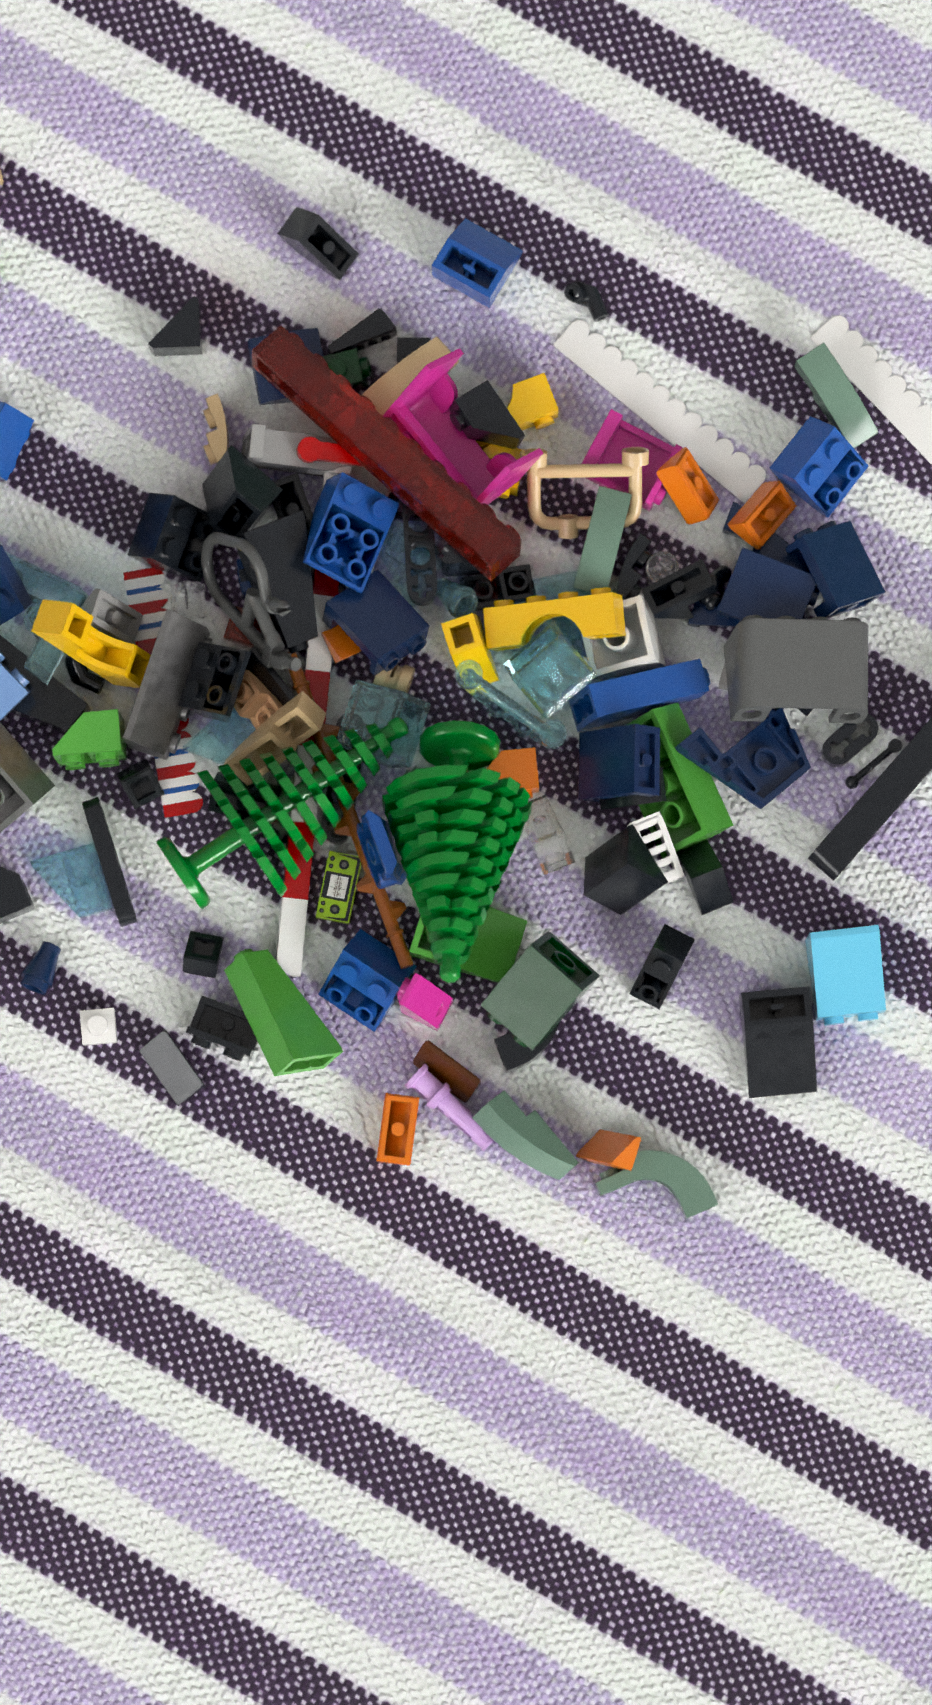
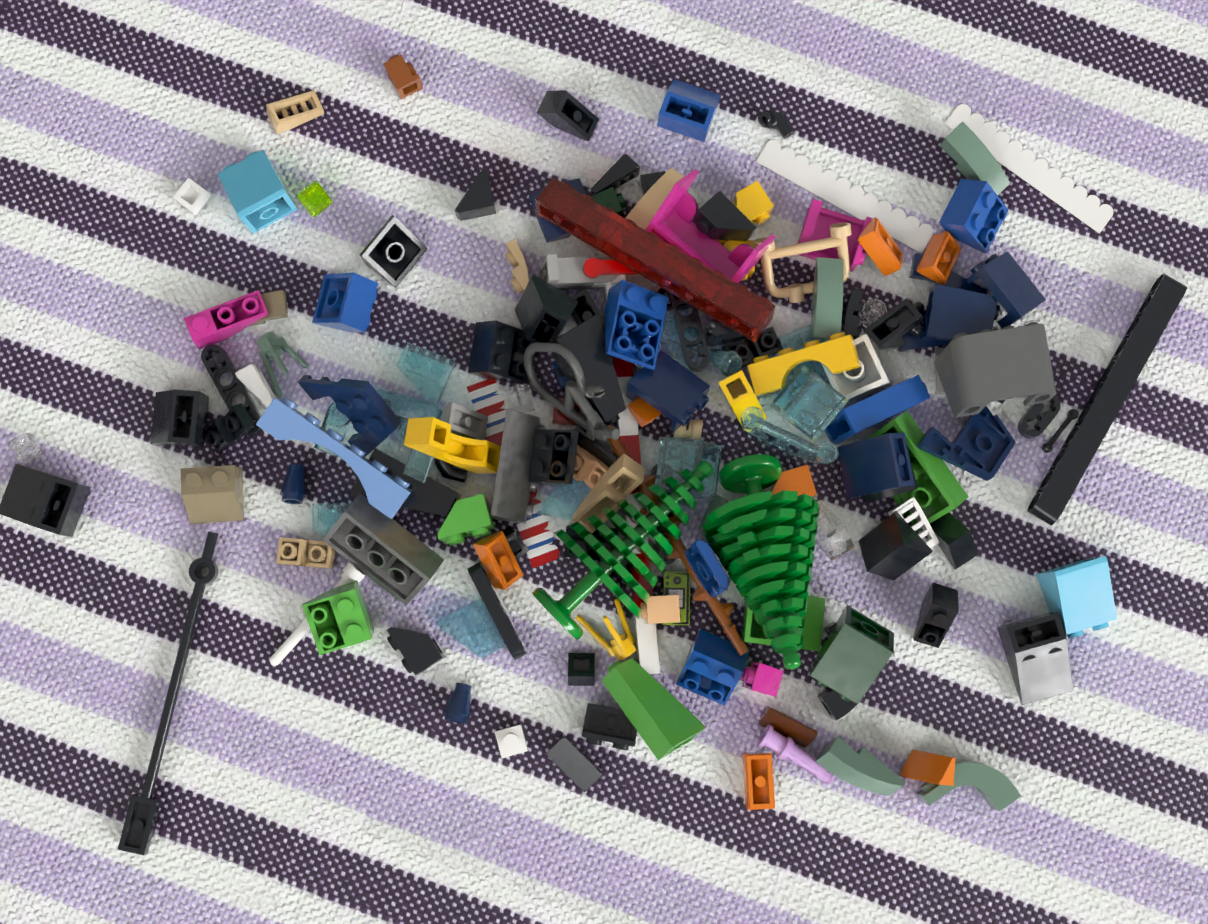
camera: 15 degrees left, 0 degrees up
(60, 383) = (393, 251): none -> black slope
(75, 543) = (426, 371): none -> clear light blue wing
(113, 153) = (402, 76): none -> dark orange brick
(123, 798) = (498, 560): none -> orange slope
(257, 932) = (621, 645): none -> yellow plant
(315, 895) = (661, 609): none -> light nougat brick

